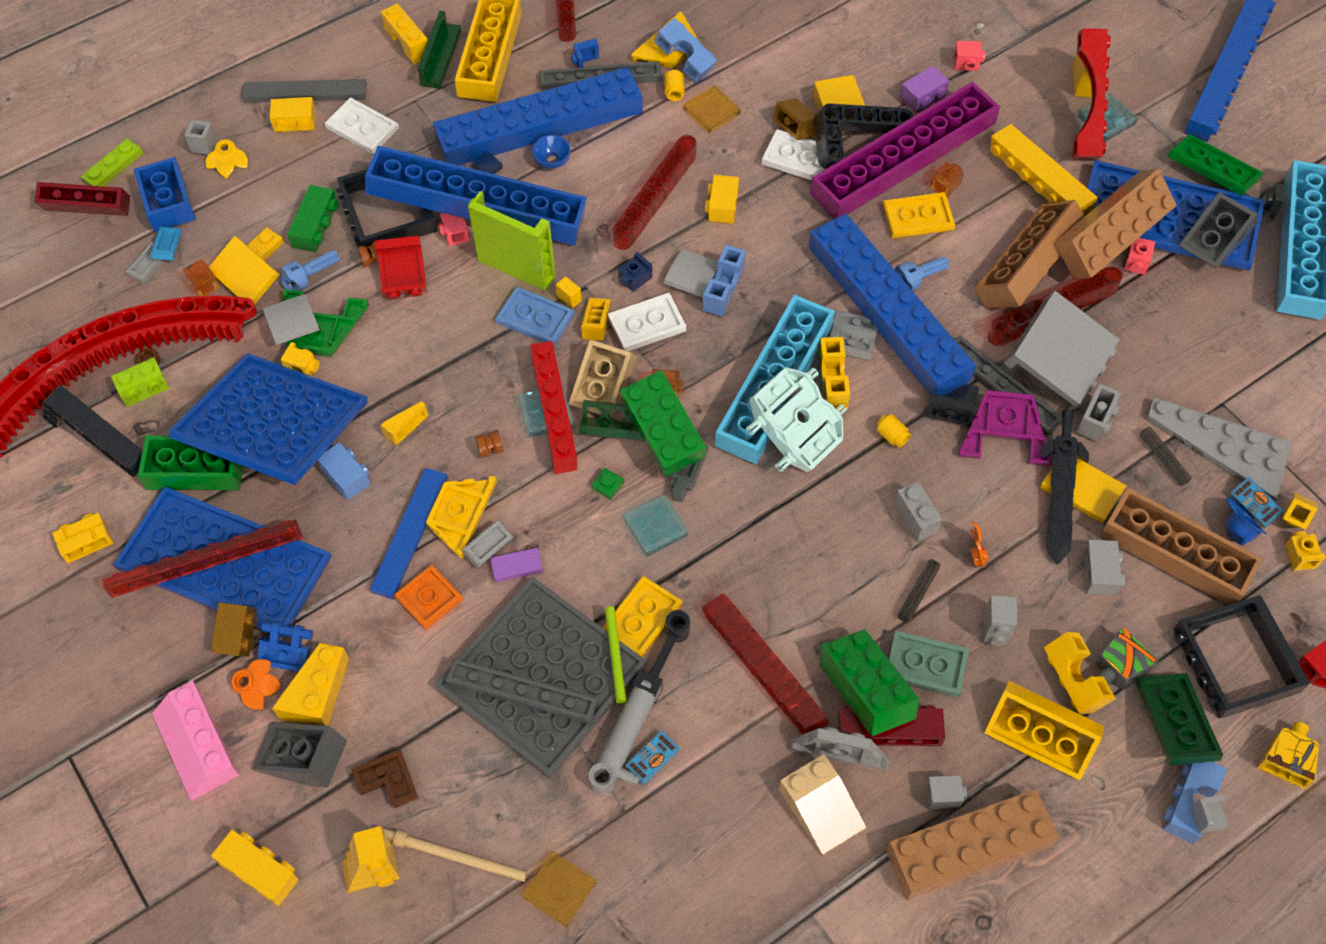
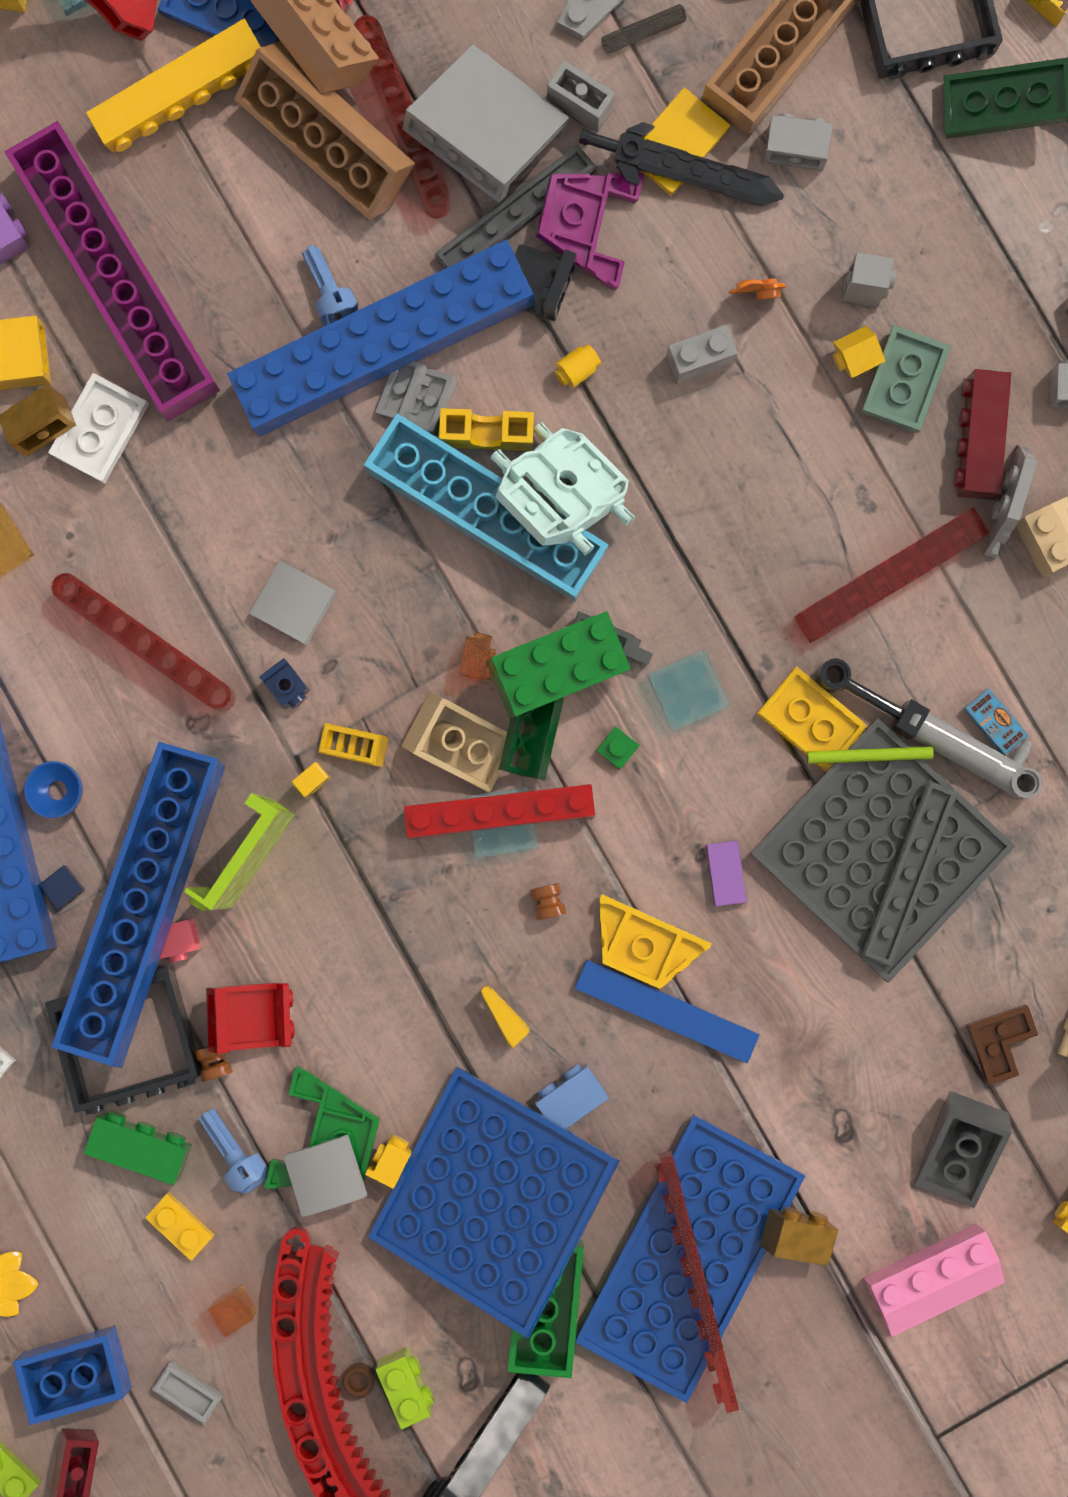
camera: 90 degrees left, 25 degrees up
(82, 537) = (641, 1448): yellow brick -> none
(166, 243) = (161, 1366): dark azure tile -> none
(243, 270) = (225, 1249): yellow tile -> none
(258, 686) = (864, 1203): orange plate -> none
(285, 654) = (831, 1170): blue plate -> none
(315, 688) = (884, 1131): yellow wedge -> none
(428, 597) = (761, 988): orange tile -> none
(487, 544) = (697, 909): light grey tile -> none
(534, 316) = (340, 830): medium blue tile -> none
(646, 322) = (370, 674): white plate -> none
(721, 289) = (317, 560): medium blue arch -> none
(723, 199) = (168, 546): yellow brick -> none
(851, 118) = (55, 280): black beam -> none
(868, 682) = (940, 450): green brick -> none
(918, 215) = (221, 274): yellow tile -> none
(919, 590) = (805, 372): clear smoke axle -> none
(940, 621) = (858, 352): none -> yellow brick
(949, 175) = (170, 231): clear orange brick -> none
(1045, 730) = (1000, 255): yellow slope -> none
(1066, 657) = (963, 199): yellow arch -> none
(1125, 660) = (923, 146): torso -> none

